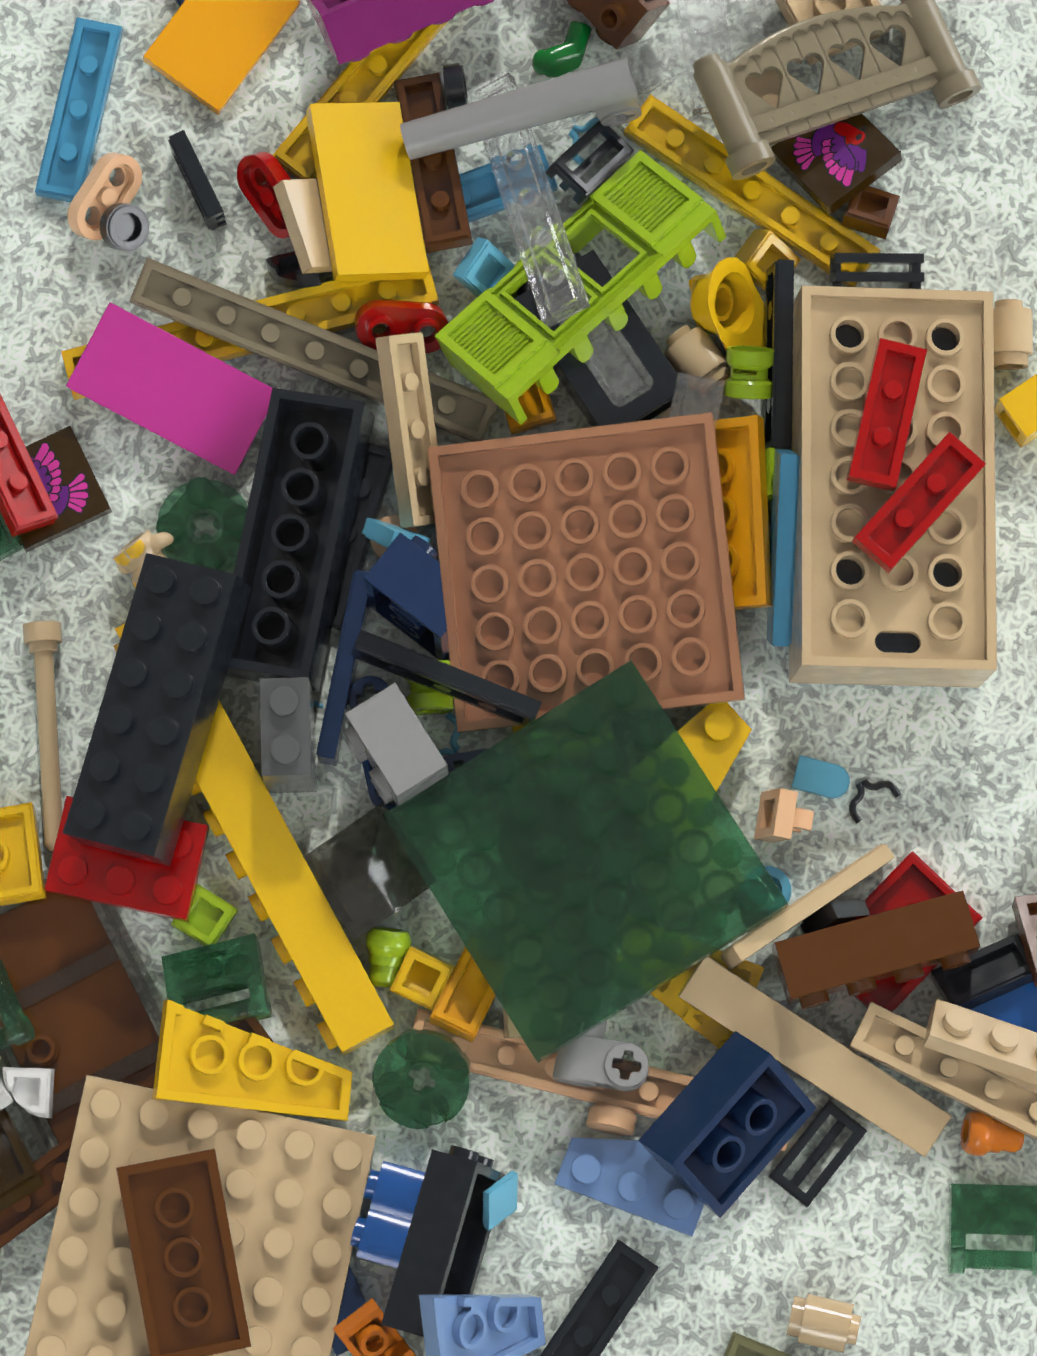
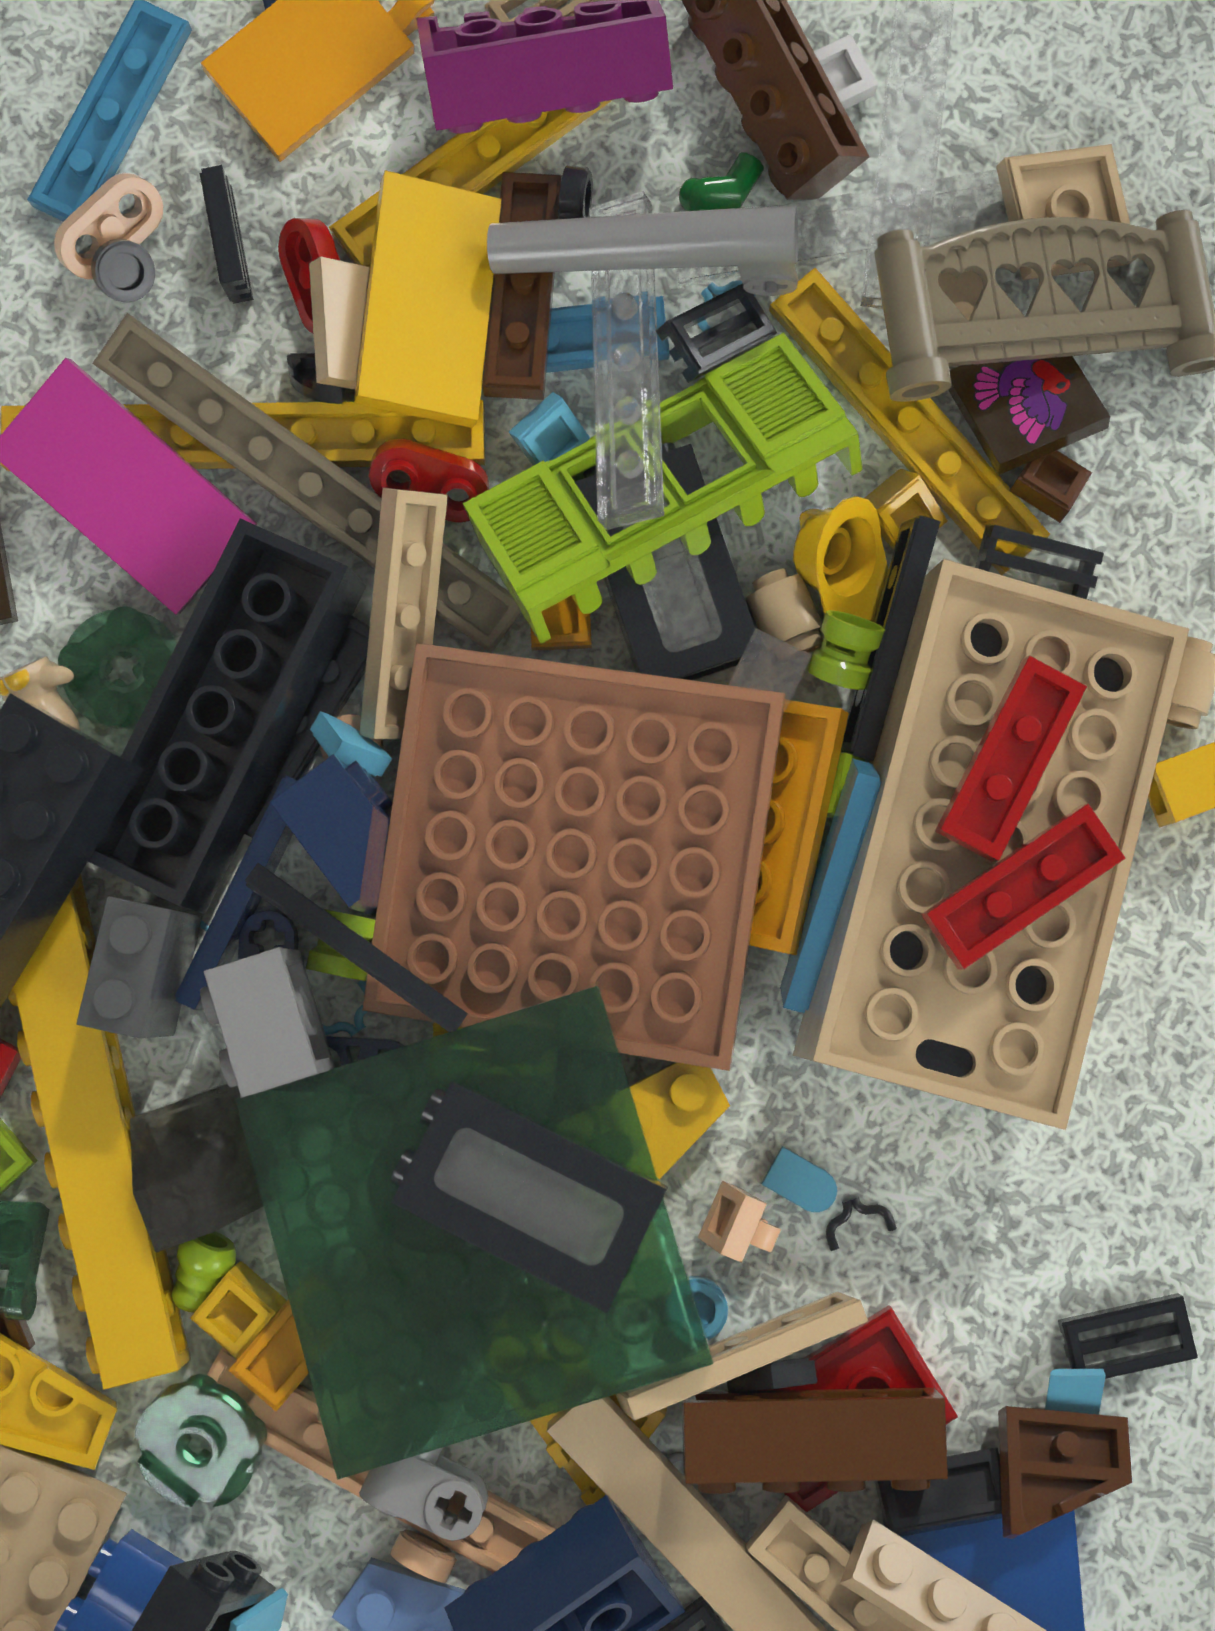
camera: 15 degrees right, 5 degrees up
(621, 812) = (527, 1193): none -> black piece

